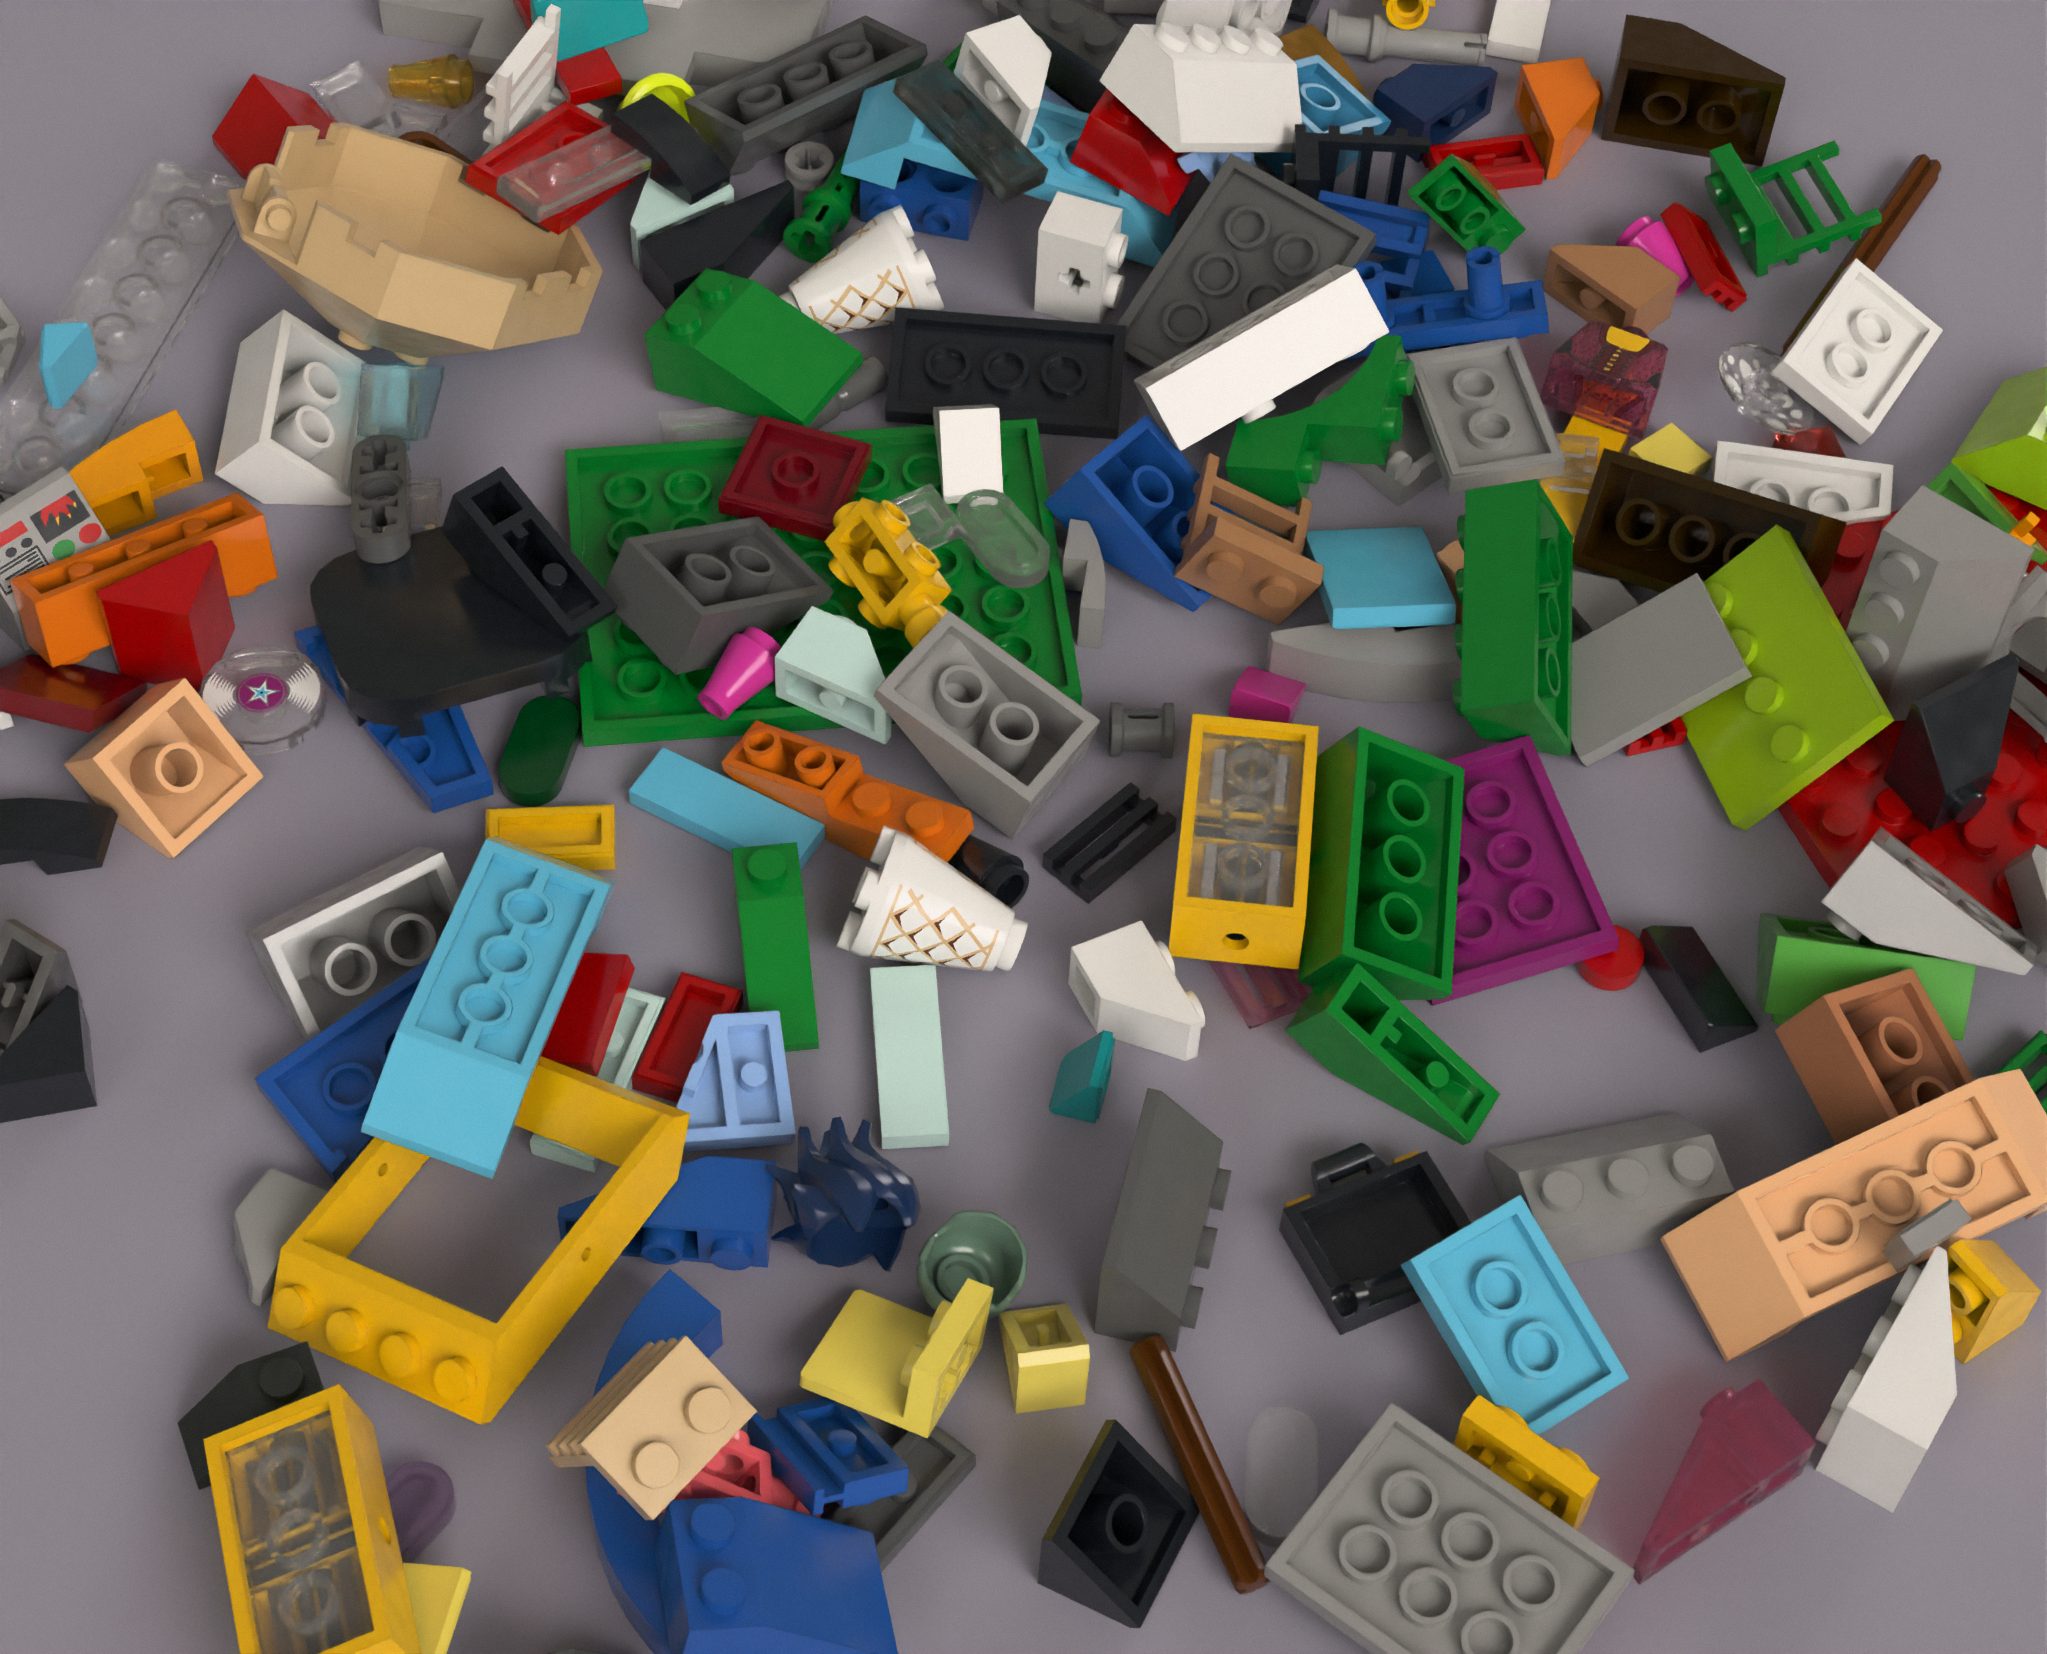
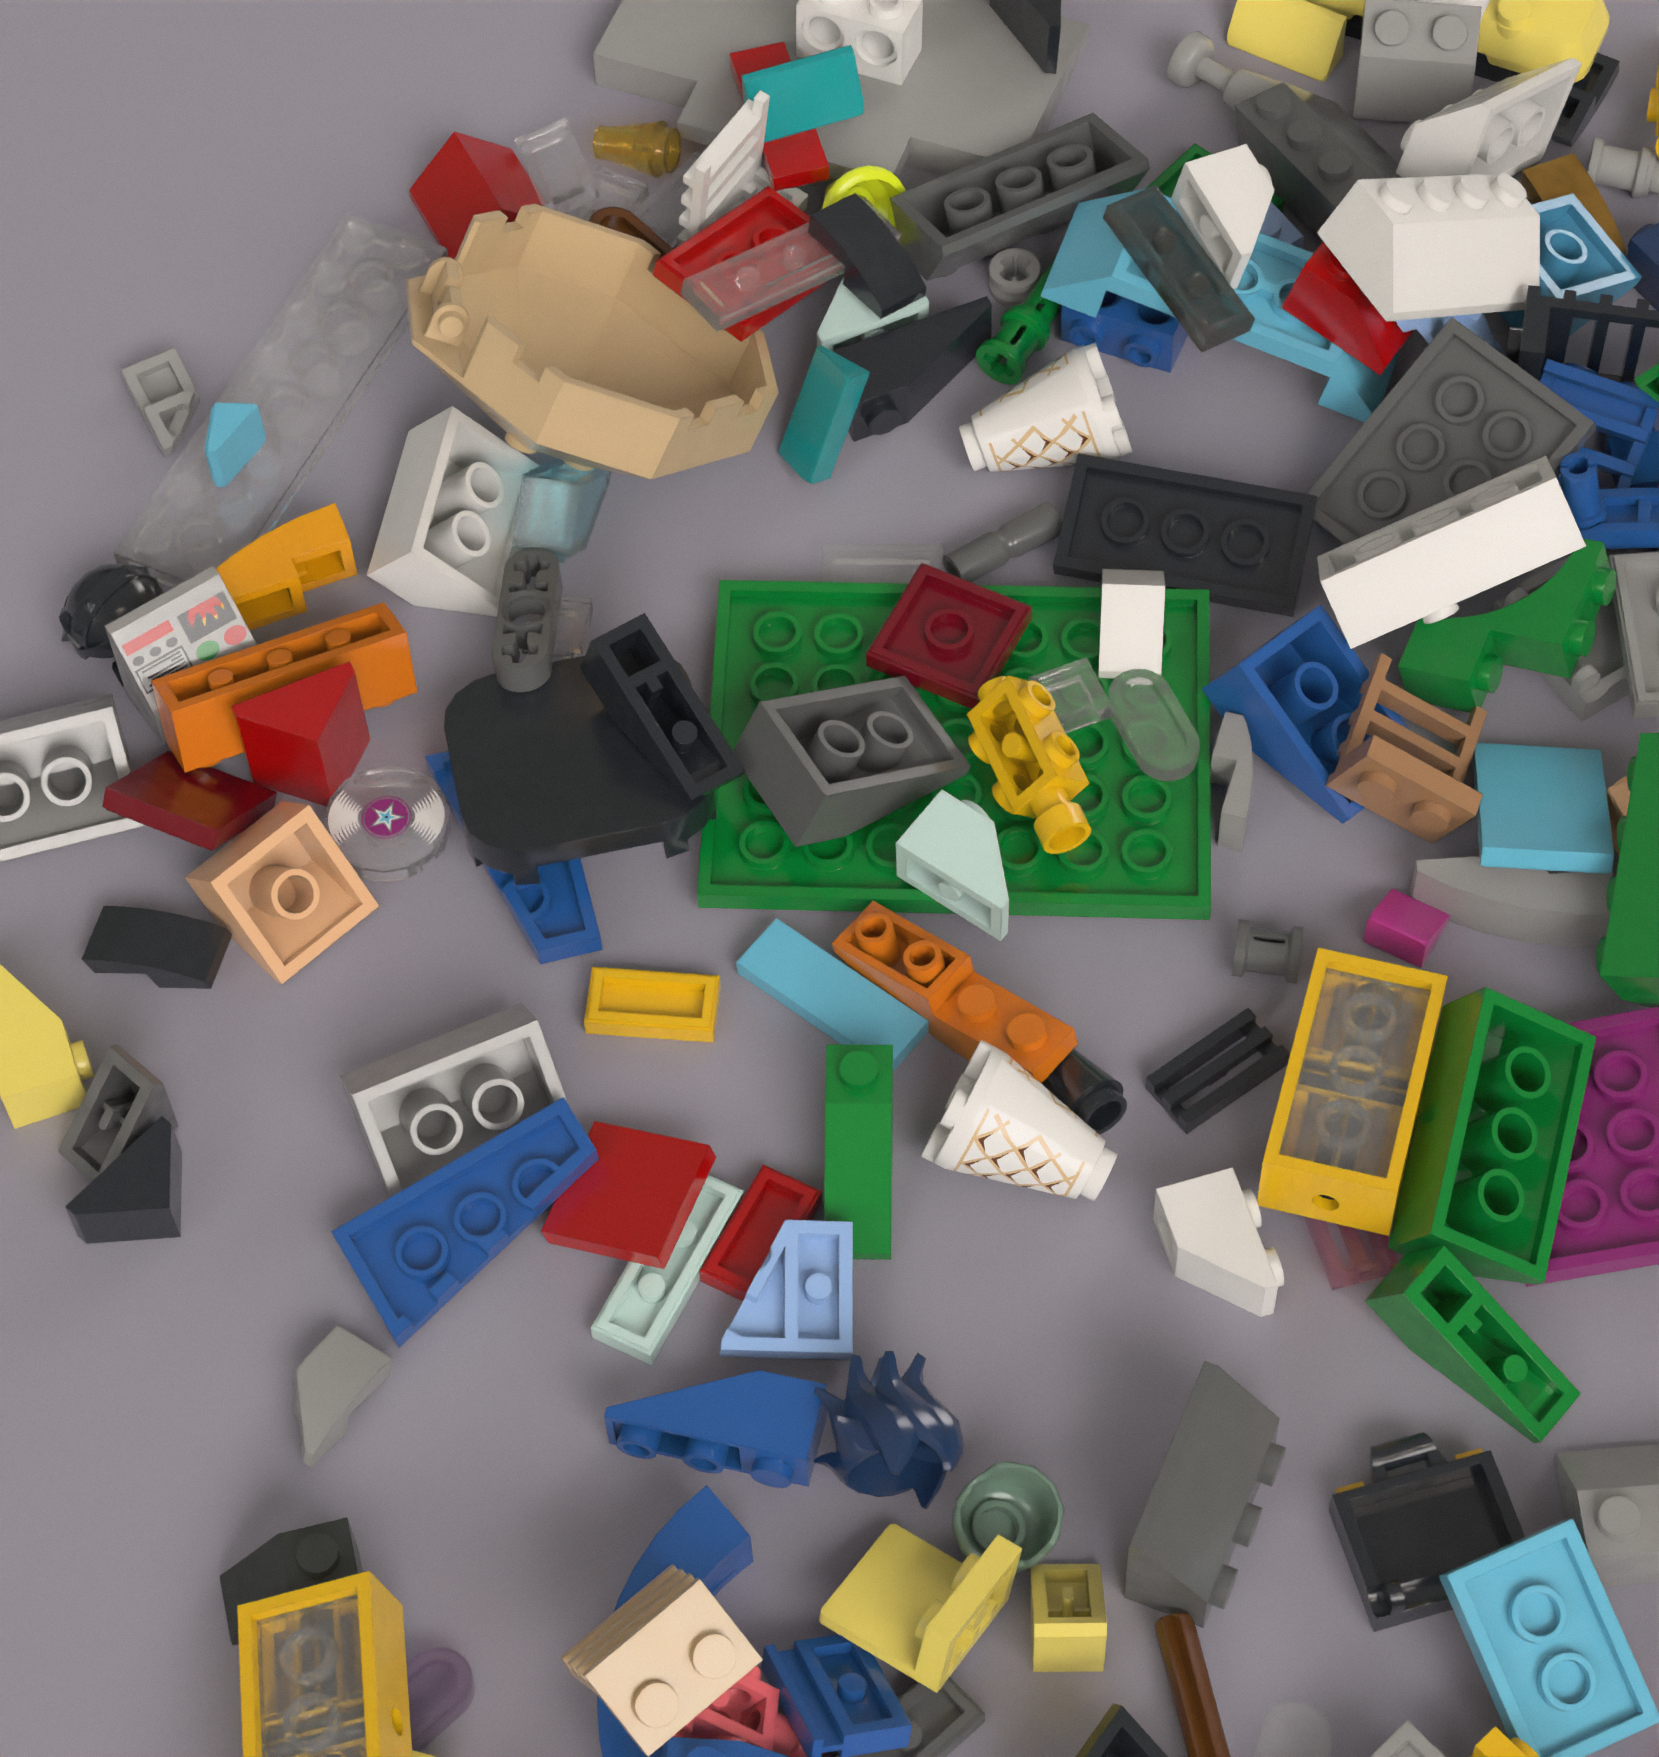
camera: 15 degrees right, 5 degrees up
(437, 1346) = (451, 1527): yellow window -> none
(486, 1006) = (565, 1183): medium azure slope -> none
(540, 751) = (653, 908): dark green tile -> none
(644, 290) = (822, 415): none -> teal slope
(740, 673) = (862, 850): dark pink cone -> none
(747, 351) = (920, 488): green slope -> none
(909, 1057) = (978, 1281): light aqua tile -> none
(986, 723) = (1103, 932): light grey slope -> none
(1079, 259) = (1279, 415): white brick -> none
(1084, 1079) = (1152, 1327): teal slope -> none

